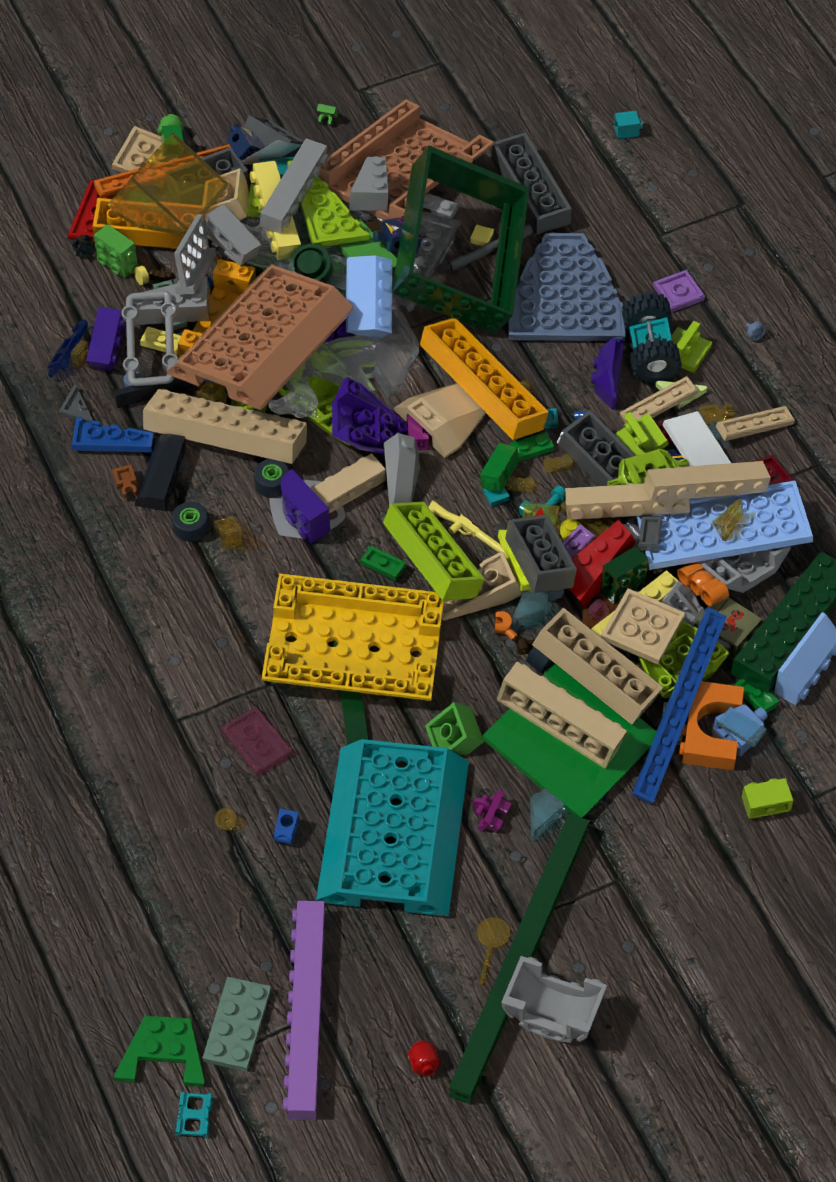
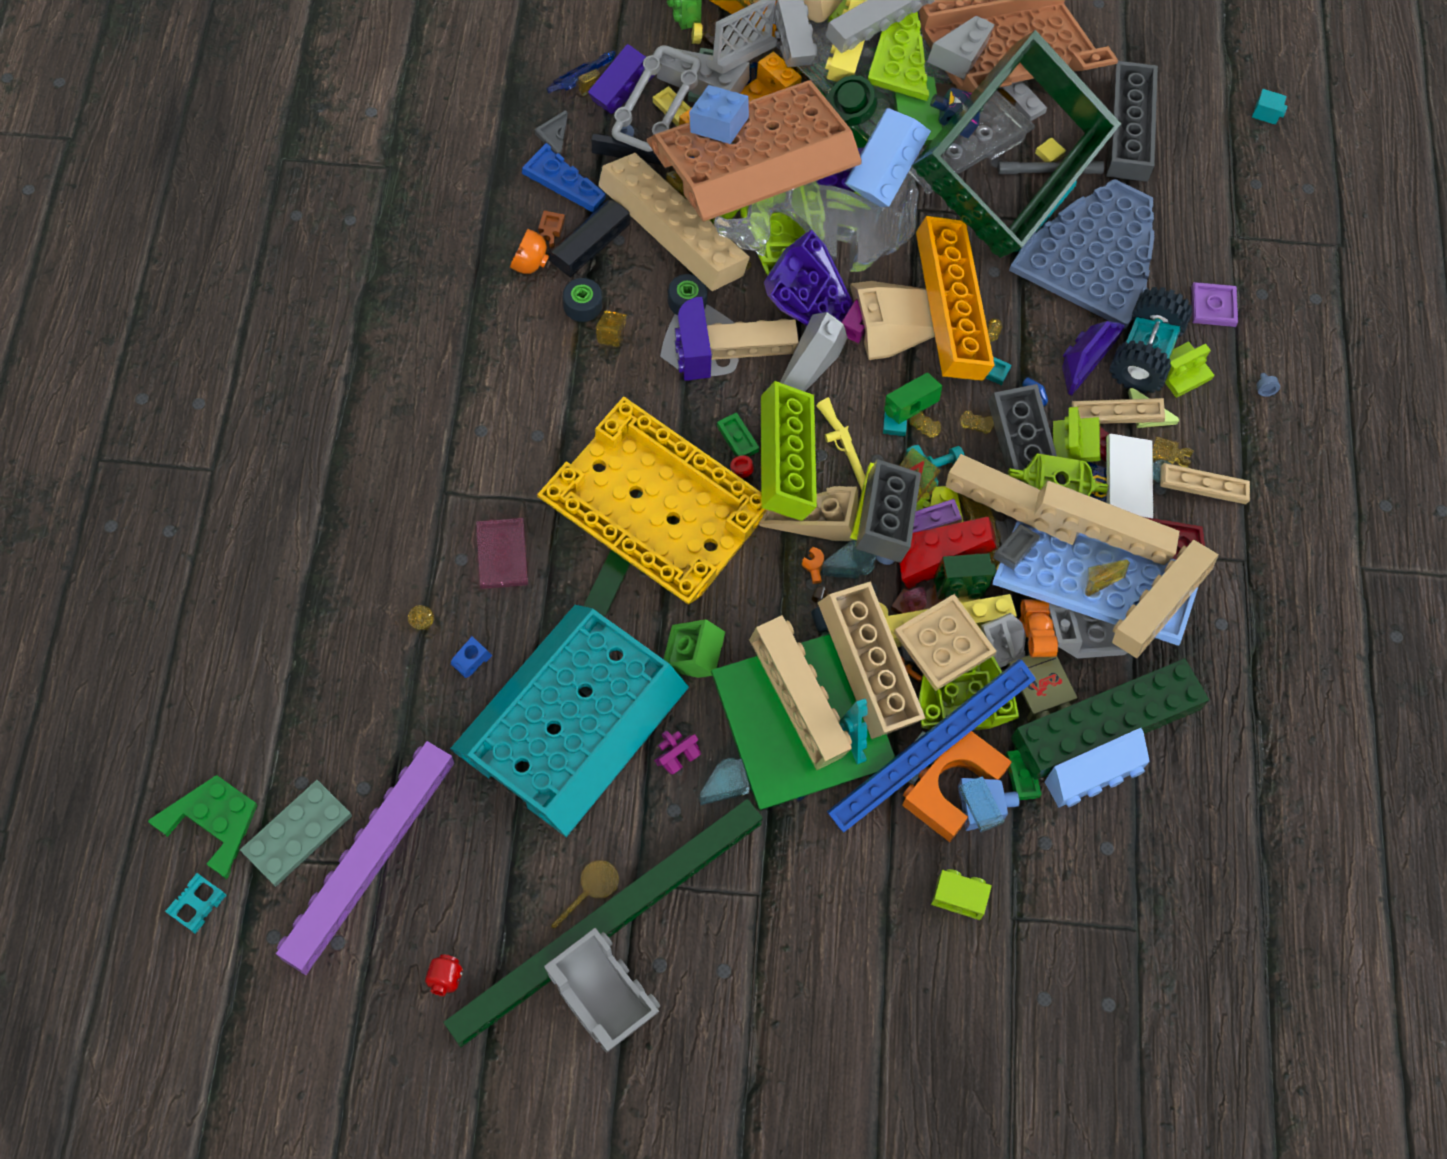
camera: 25 degrees right, 10 degrees up
(124, 506) = (530, 253): none -> orange cylinder
(222, 322) = (719, 114): none -> medium blue brick
(402, 580) = (742, 466): none -> red tile
(533, 446) = (962, 392): green plate -> none
(618, 713) = (856, 729): none -> teal wing
(782, 513) = (1164, 598): none -> tan brick

